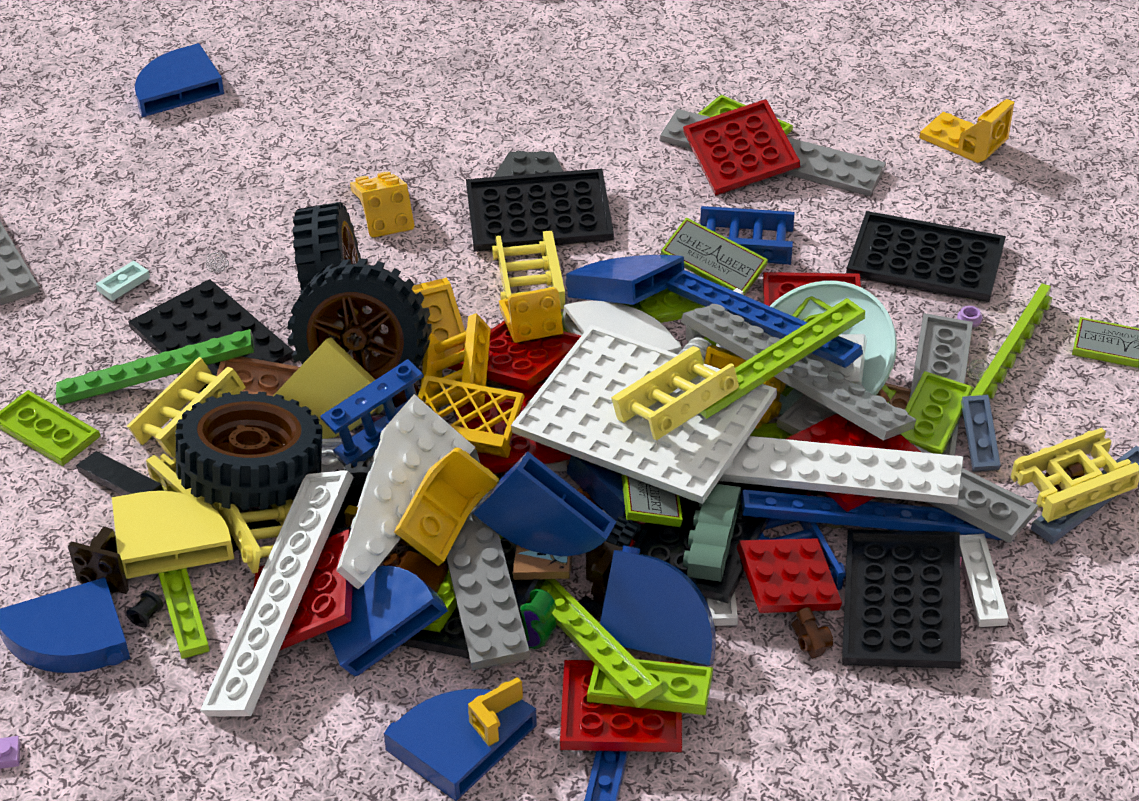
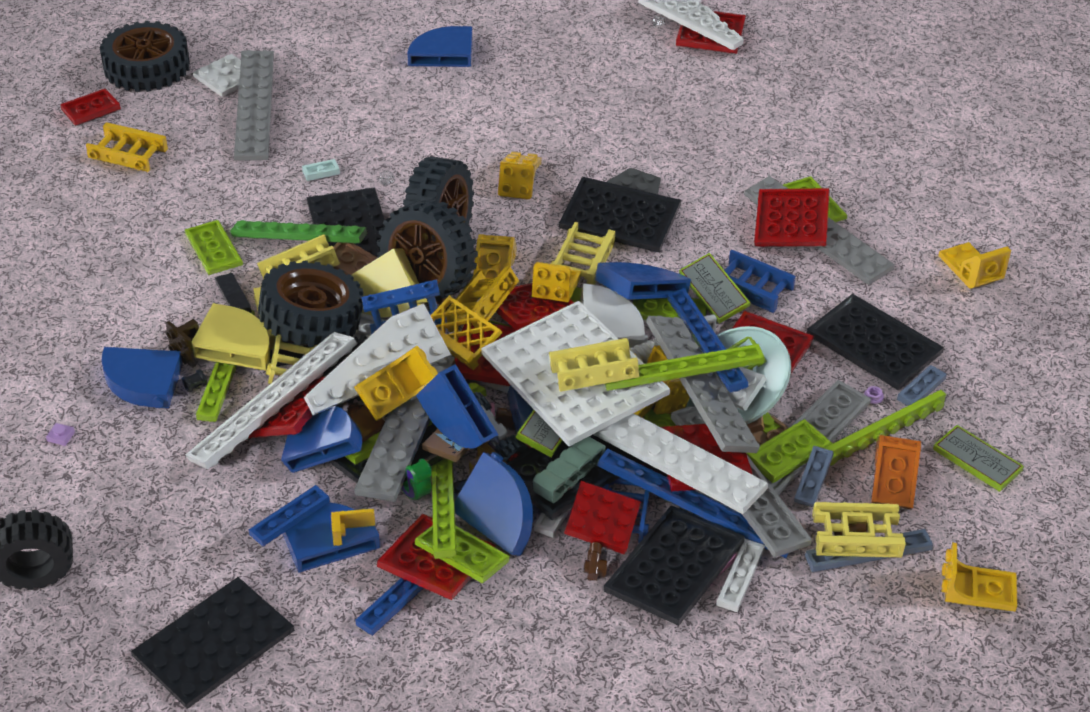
camera: 25 degrees right, 0 degrees up
(408, 731) = (289, 515): none -> blue plate
(1013, 289) = (922, 385): none -> sand blue plate
(1063, 389) = (895, 471): none -> orange bracket

